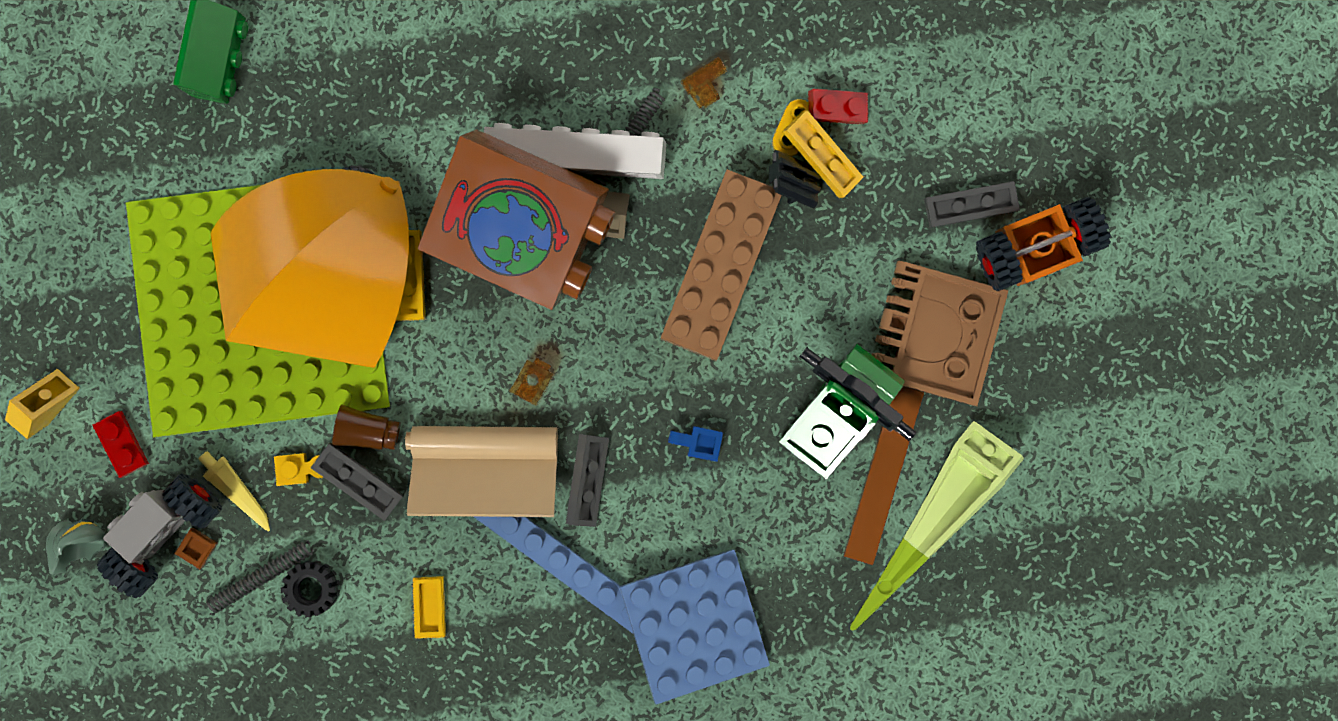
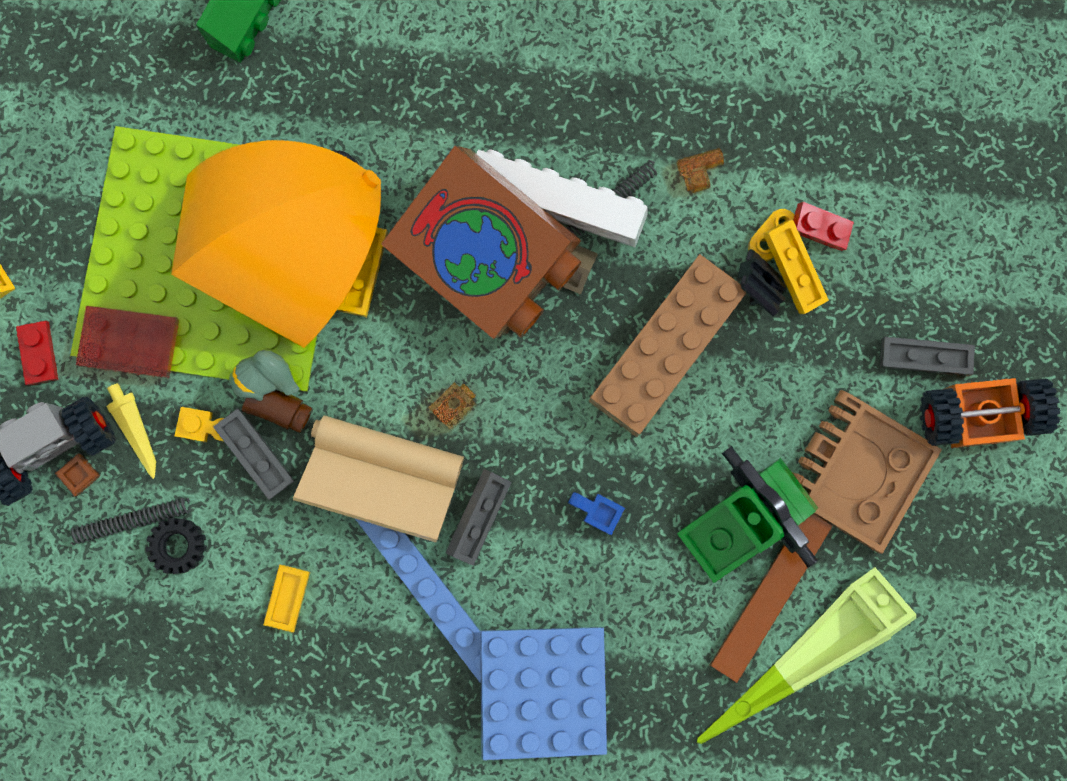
camera: 10 degrees right, 5 degrees down
(203, 409) = (127, 342): none -> clear red plate
(342, 406) = (261, 376): none -> sand green hair

